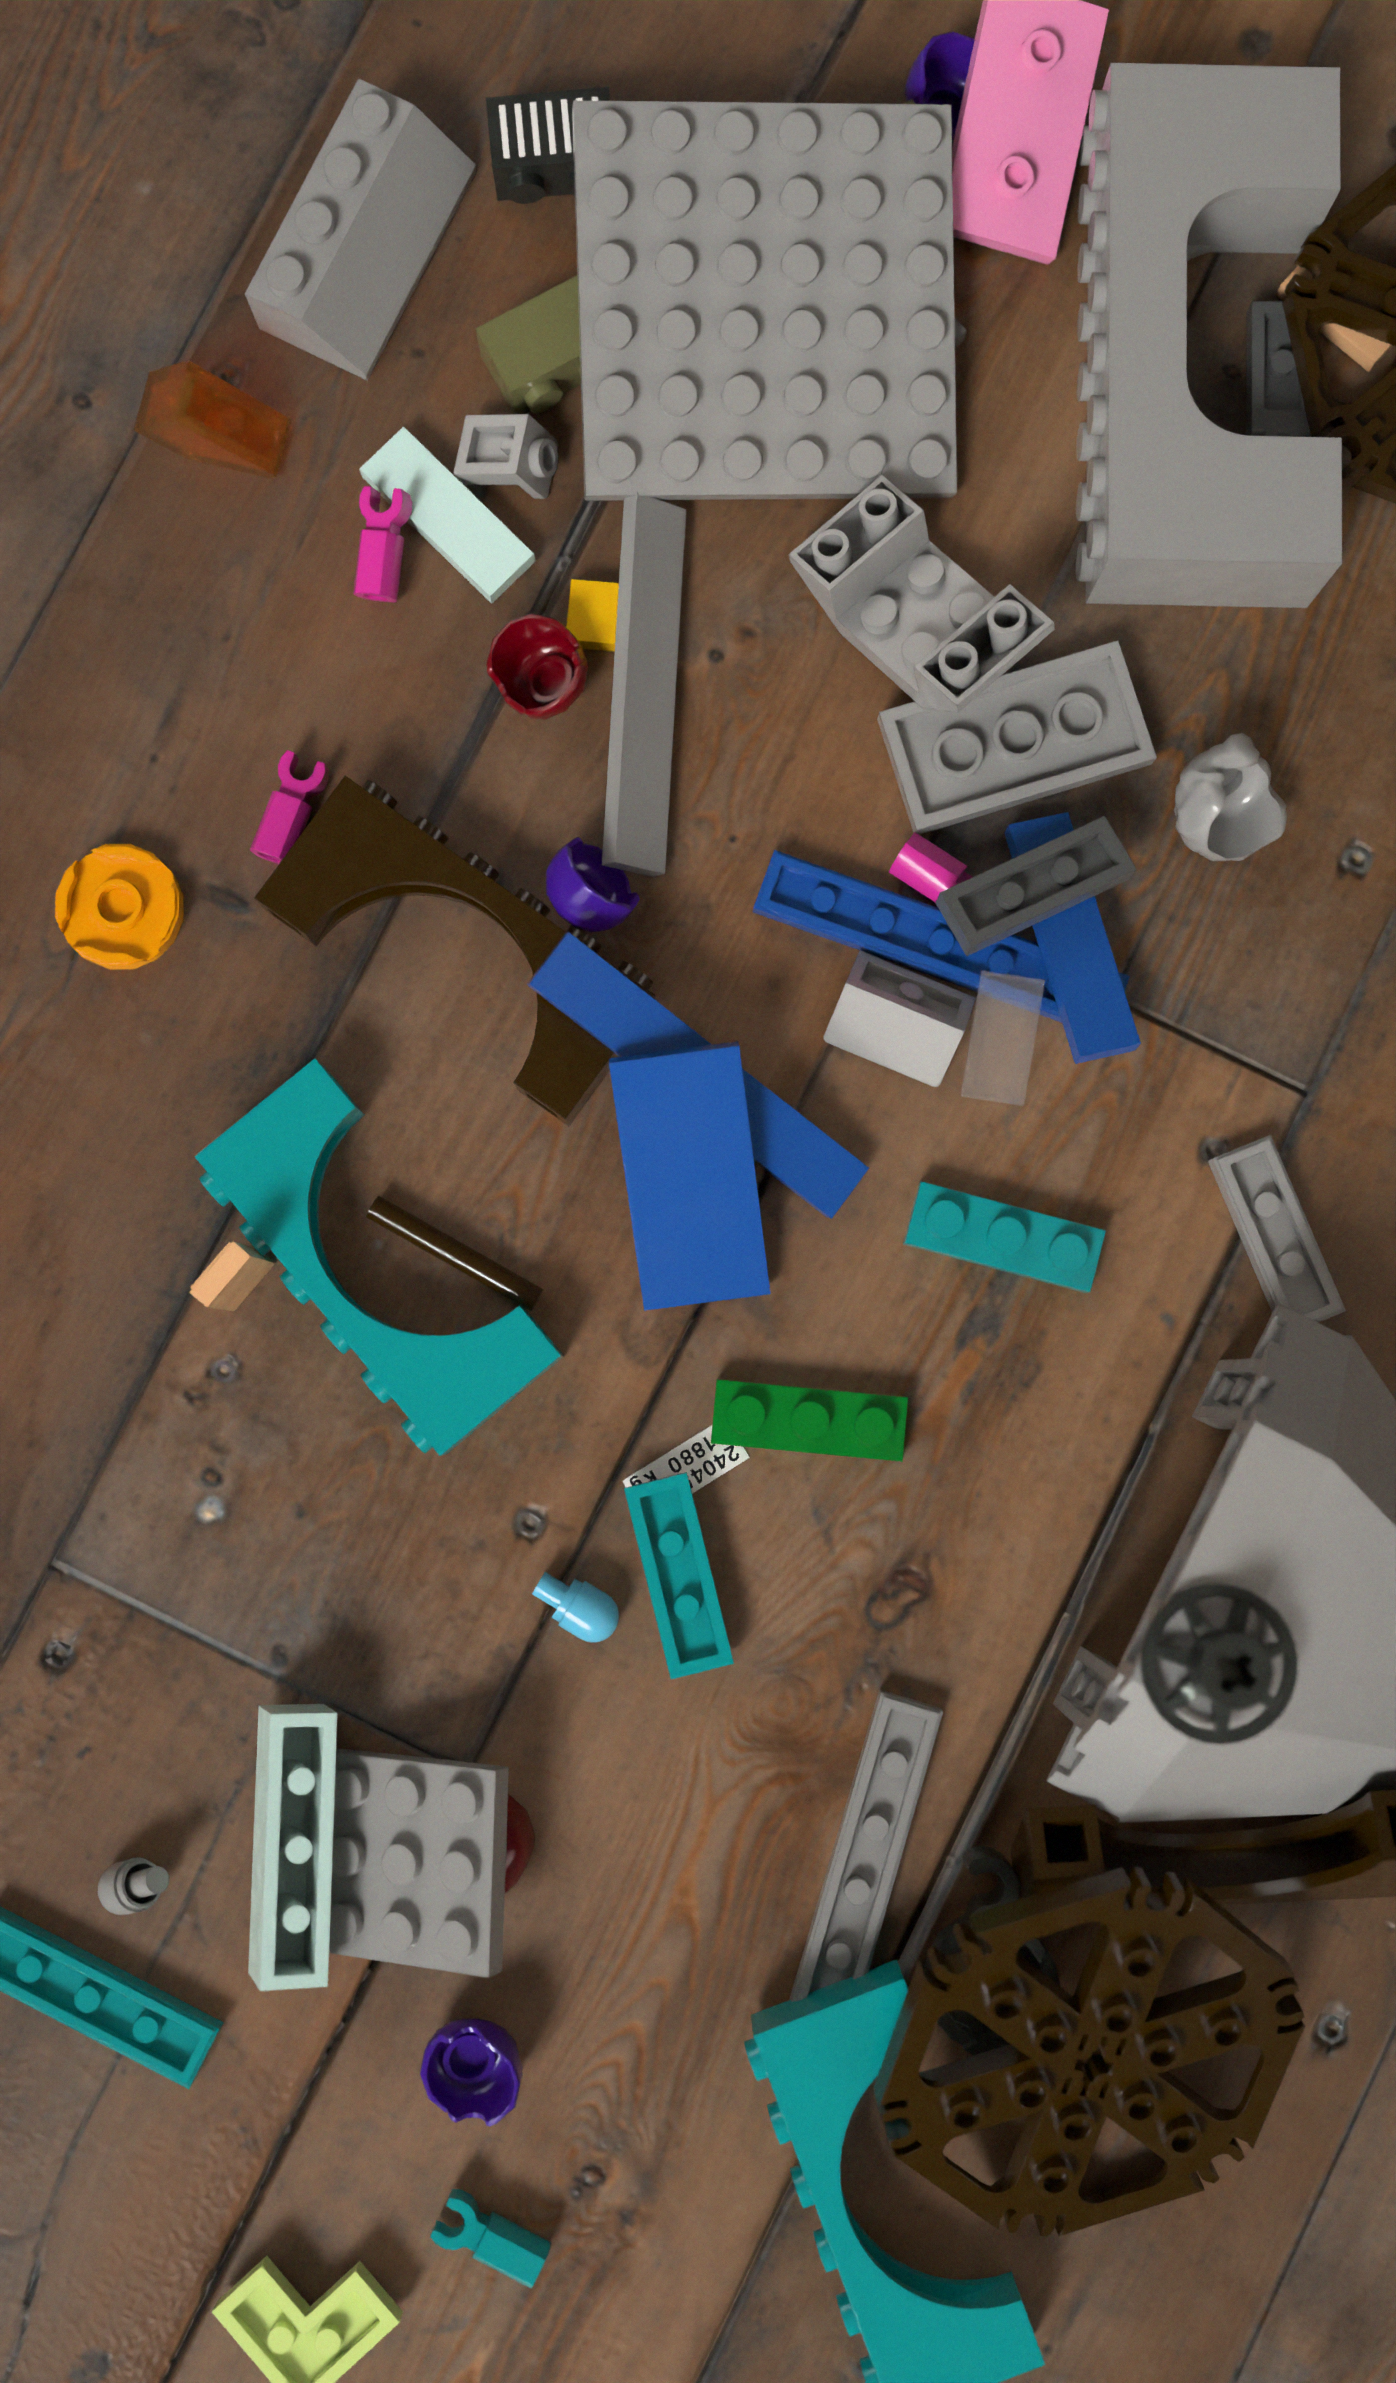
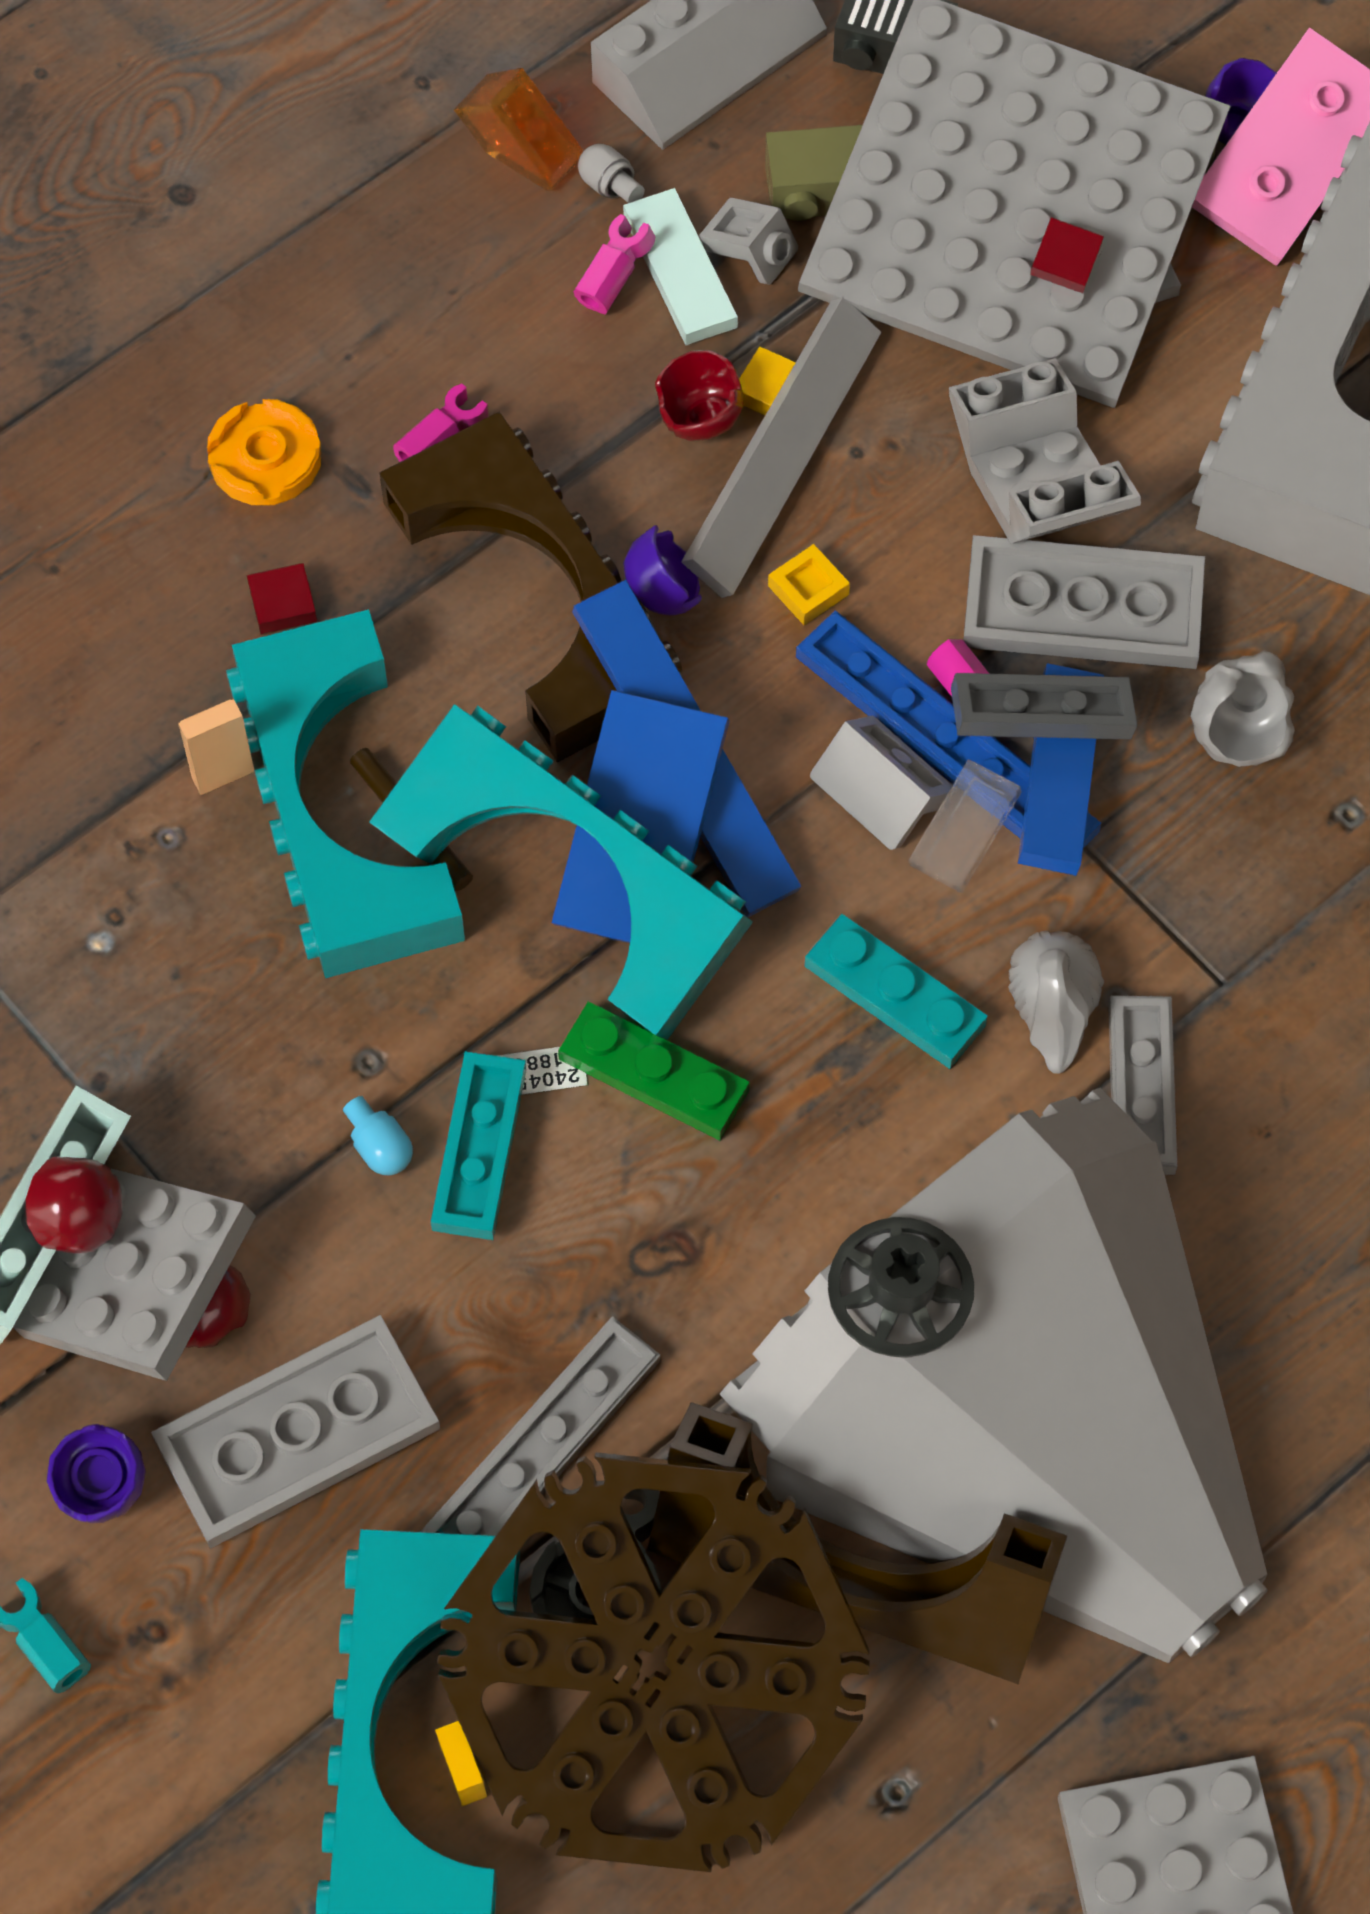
camera: 25 degrees right, 20 degrees down
(215, 1066) = (282, 598): none -> dark red tile
(327, 435) = (609, 173): none -> light grey cylinder
(329, 1841) = (73, 1204): none -> dark red hair
(520, 1203) = (677, 923): none -> teal arch
(636, 1939) = (295, 1431): none -> light grey plate
(734, 829) = (808, 584): none -> yellow tile
(852, 355) = (1066, 255): none -> dark red tile
(942, 2207) = (461, 1763): none -> yellow tile
(1160, 1177) = (1055, 991): none -> light grey hair

